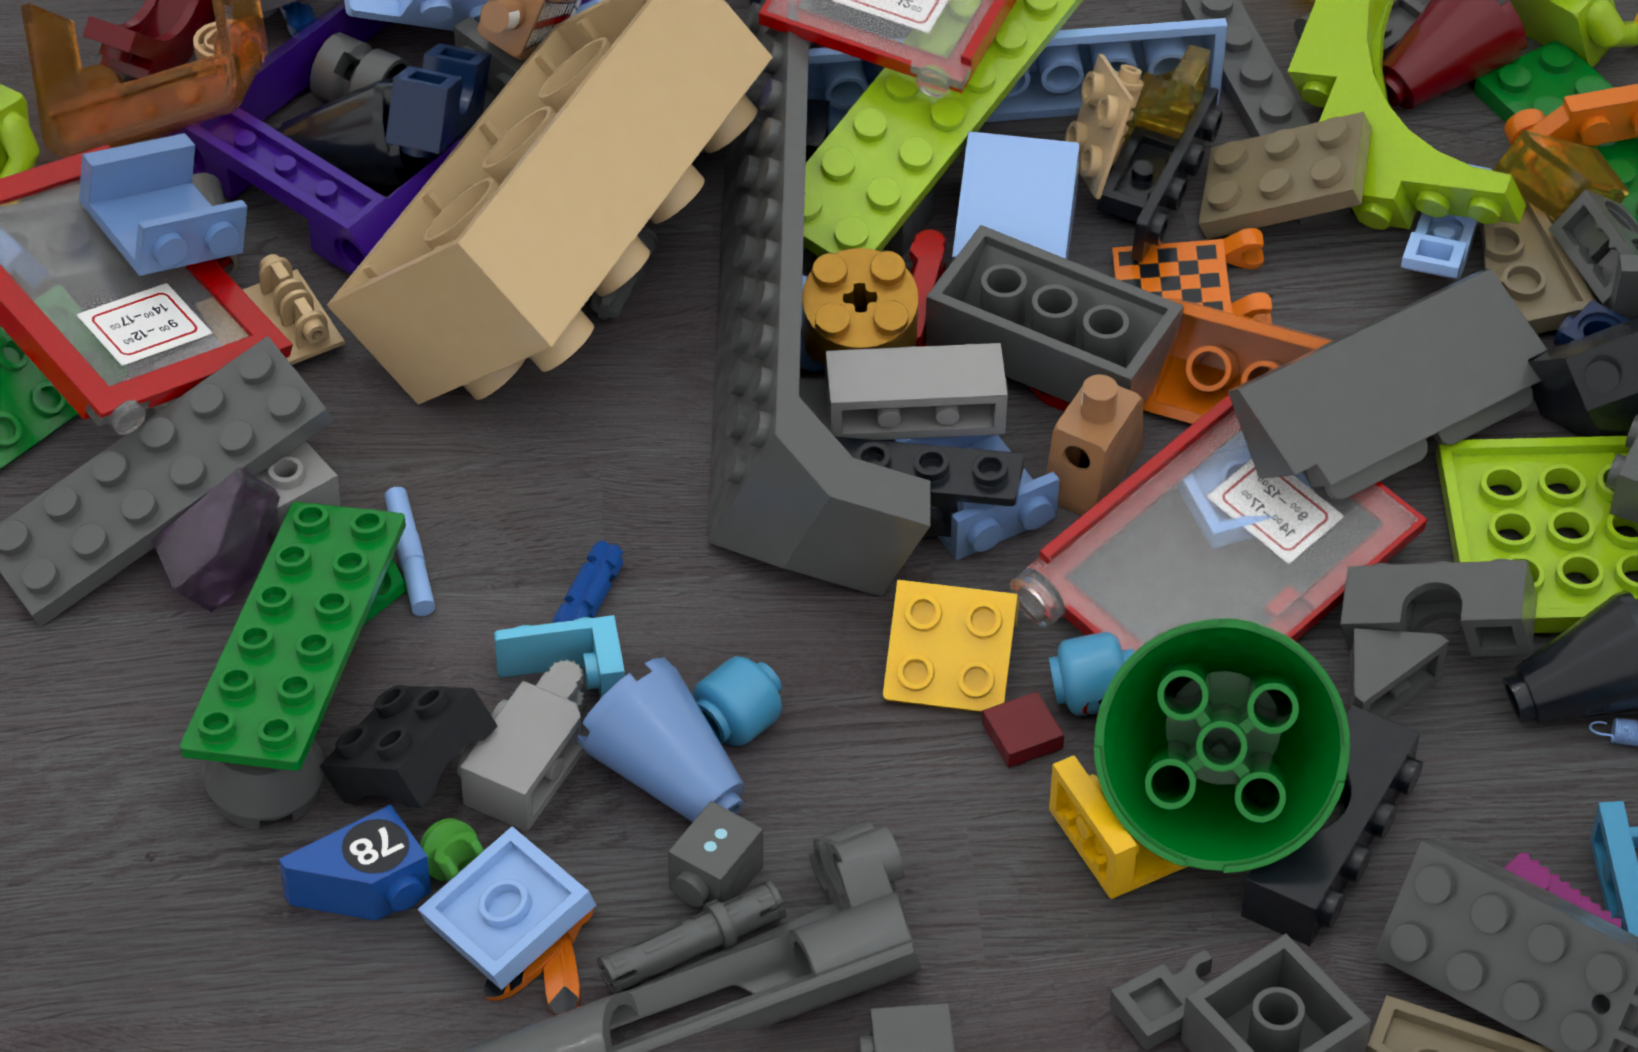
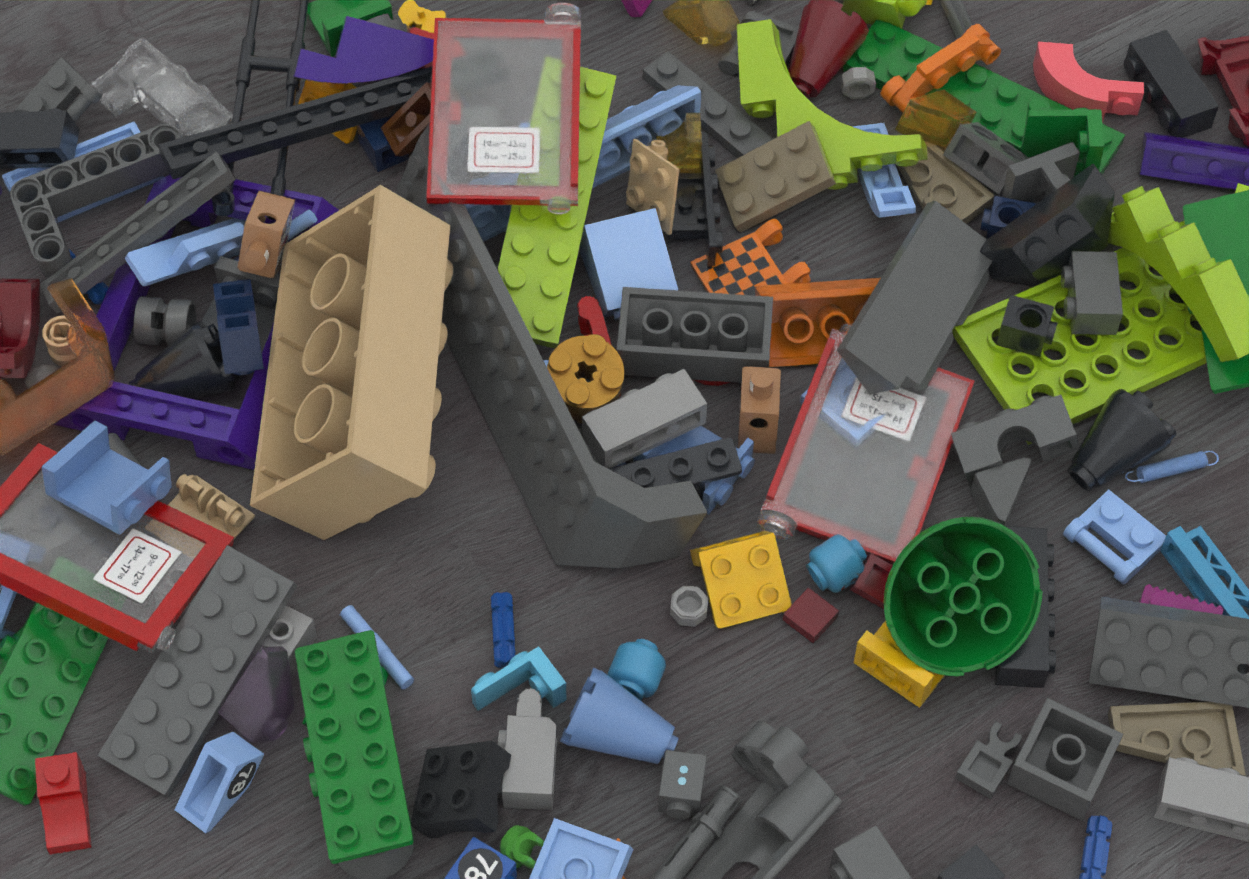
camera: 25 degrees left, 10 degrees up
(109, 621) = (218, 780): none -> light blue slope
(857, 653) = (689, 606): none -> light grey tile
(1481, 107) = (858, 83): none -> light grey tile
(1539, 472) = (1023, 313): none -> black brick
(1543, 785) = (1122, 529): none -> light blue plate

